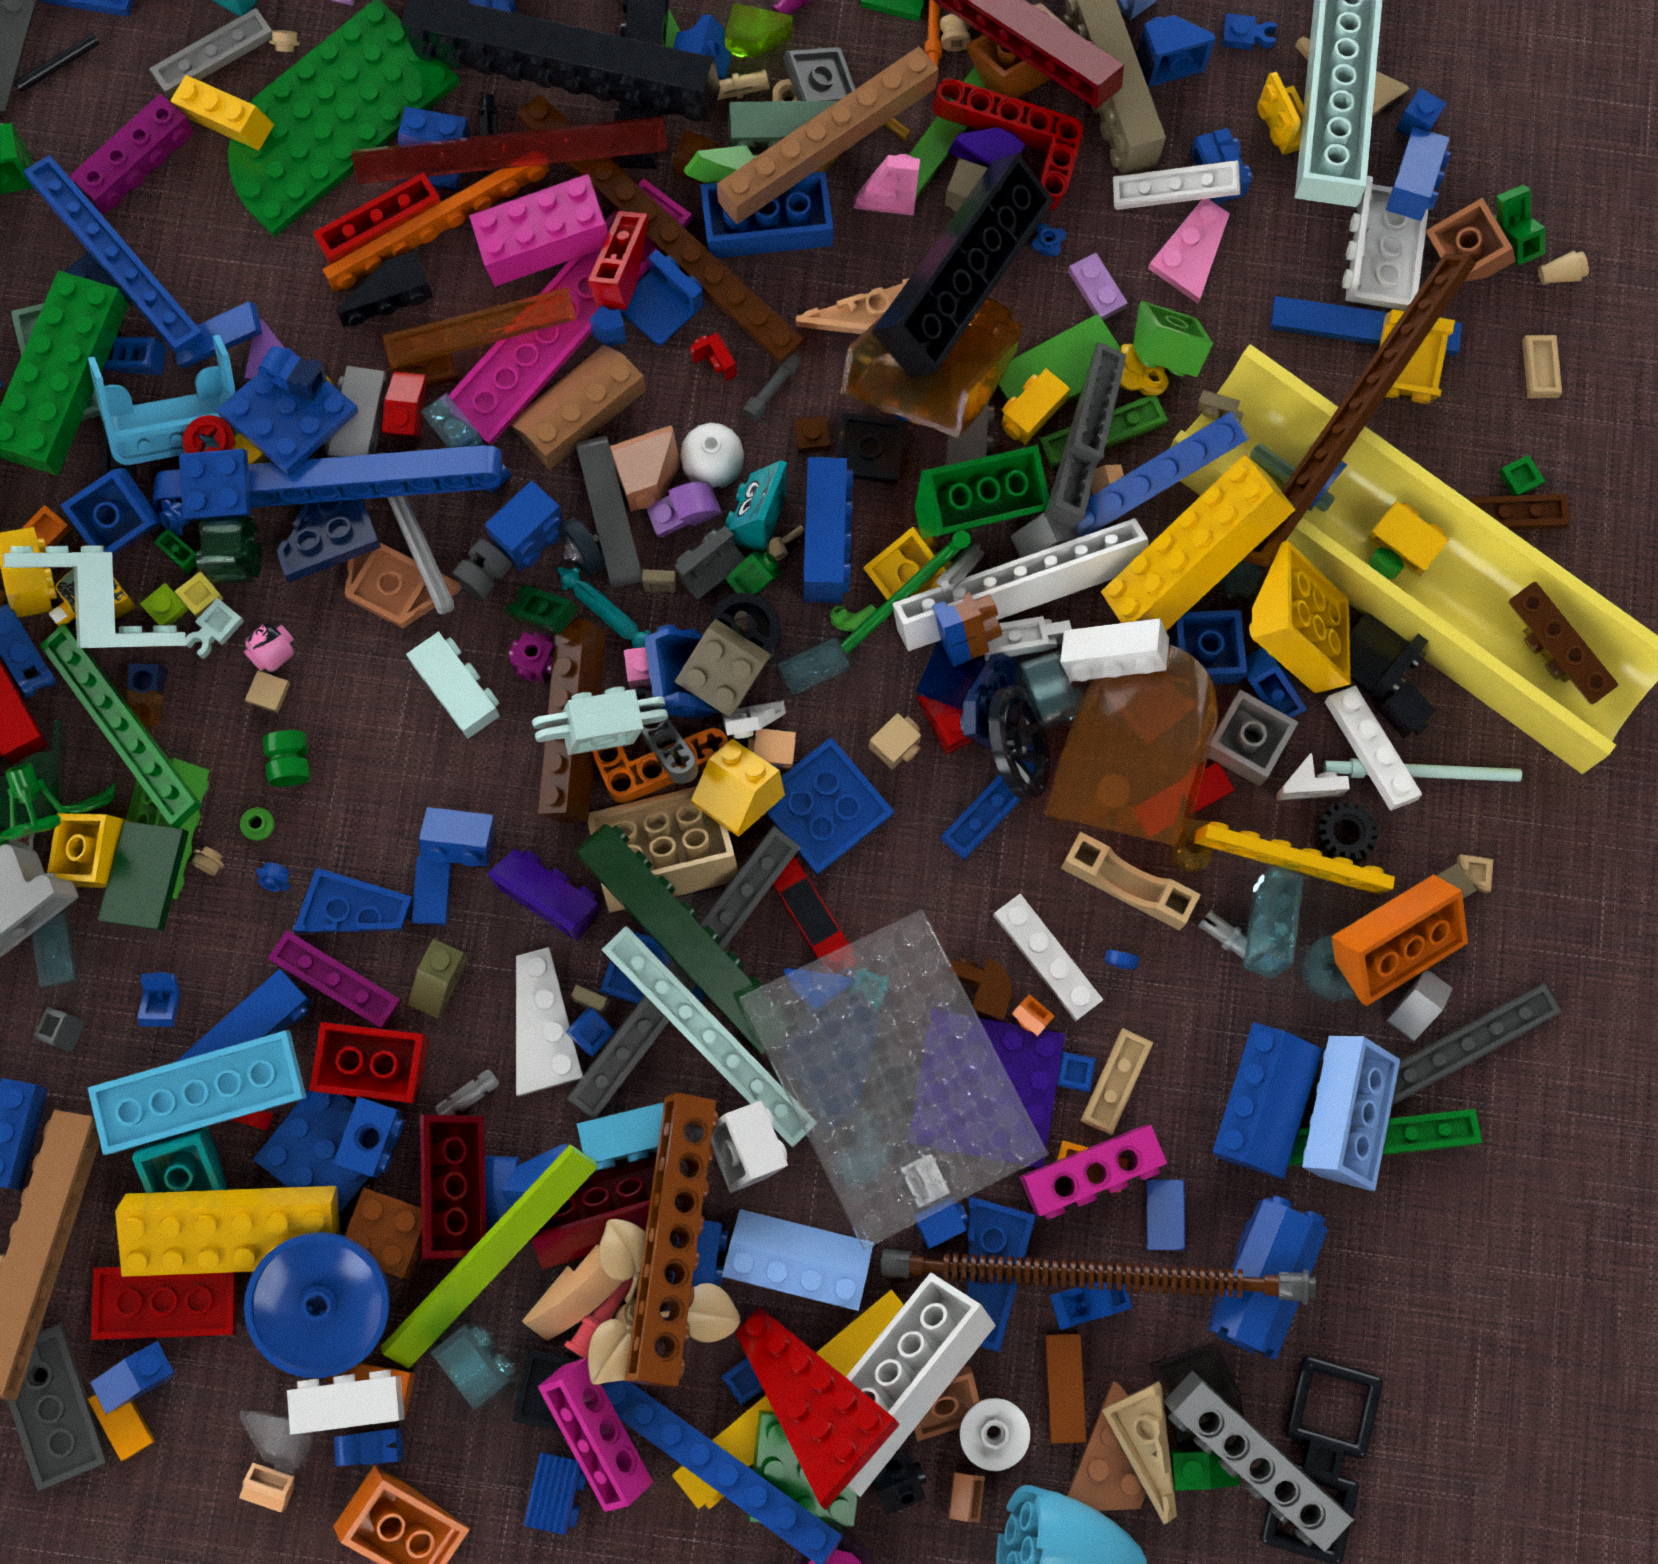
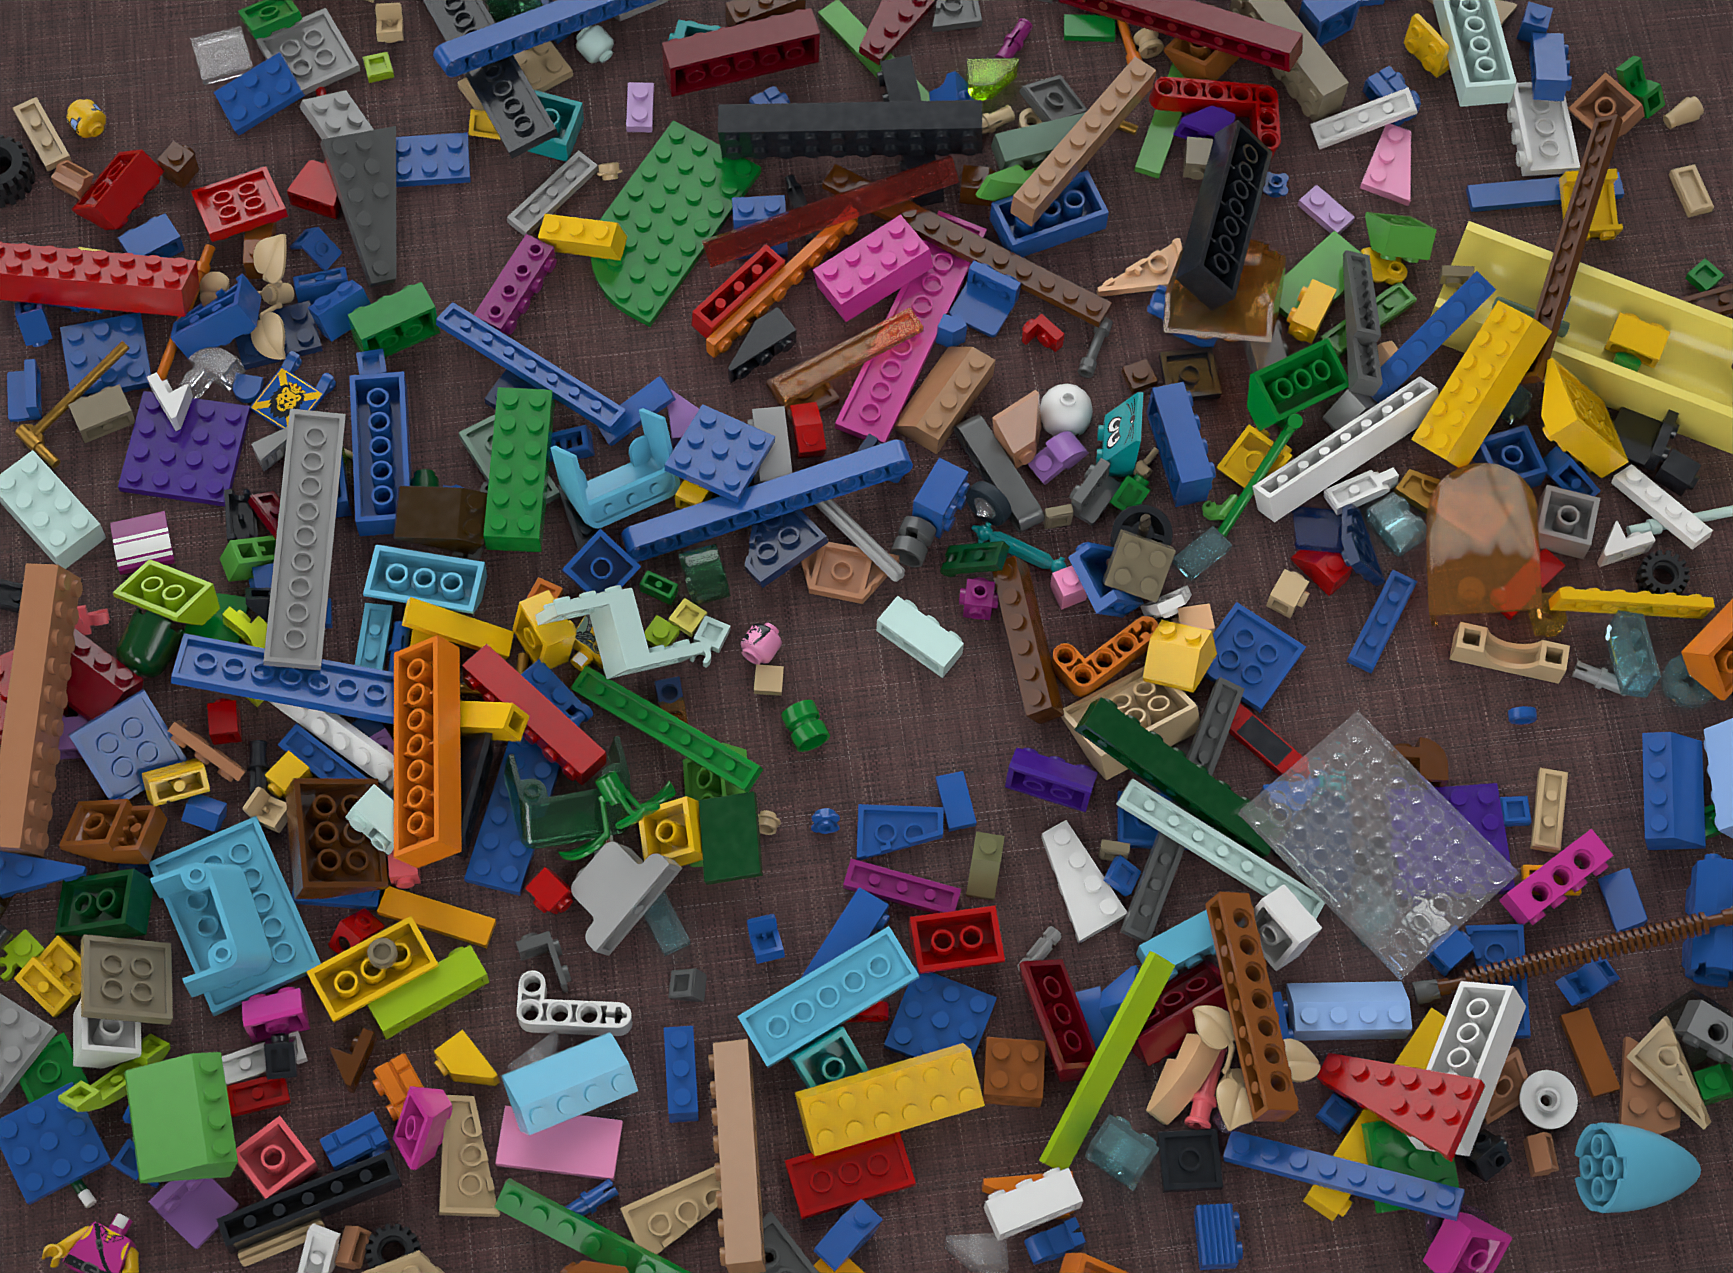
camera: 15 degrees left, 10 degrees down
(57, 62) = (424, 231): black bar -> none
(172, 517) = (650, 559): blue plate -> none
(208, 426) = (657, 481): red gear -> none
(214, 484) = (681, 524): blue plate -> none
(264, 830) = (796, 792): bright green plate -> none
(293, 372) = (719, 420): leg -> none
(317, 1305) = (984, 1132): blue dish -> none
(366, 1117) = (979, 980): blue brick -> none
(450, 423) = (852, 433): clear light blue plate -> none
(457, 837) = (965, 751): brick -> none
(595, 1436) = (1238, 1177): dark pink brick -> none
(600, 720) = (1060, 625): light aqua brick -> none
(619, 261) = (947, 276): red slope -> none
(667, 732) = (1099, 634): dark grey beam -> none
(891, 186) = (1143, 171): bright pink wing -> none
(960, 567) = (1297, 446): light grey axle -> none
(967, 627) = (1318, 489): hips -> none
(1011, 745) = (1391, 565): black wheel -> none
(1032, 1015) = (1467, 775): orange plate -> none
(1047, 957) = (1463, 729): white plate -> none
(1115, 650) = (1442, 476): white brick -> none

